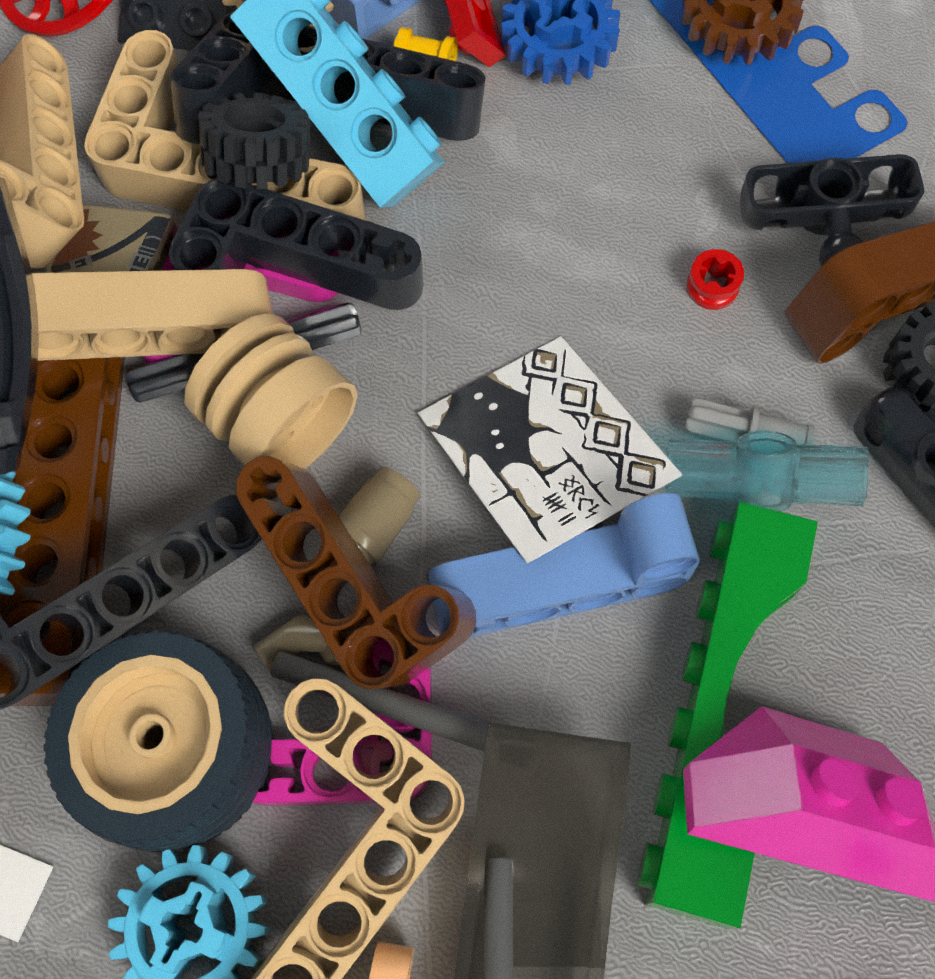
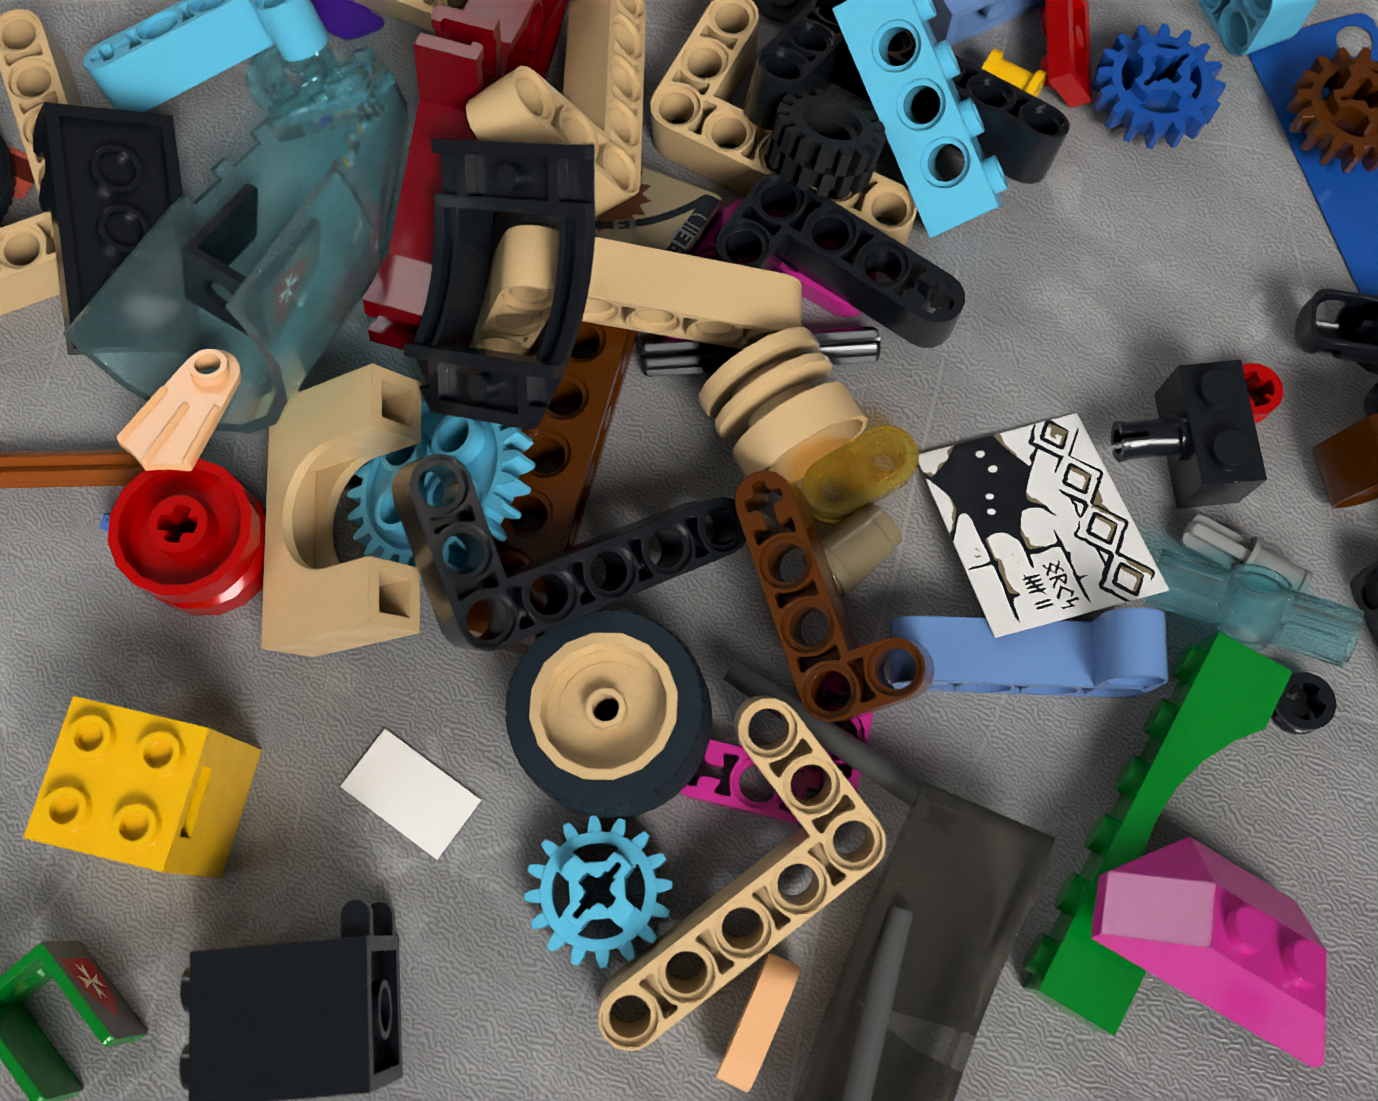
camera: 15 degrees right, 5 degrees up
(294, 637) = (750, 646): dark tan arm -> none
(360, 441) = (857, 476): none -> clear yellow plate
(678, 322) = (1204, 433): none -> black brick
(854, 544) = (1320, 699): none -> black bush

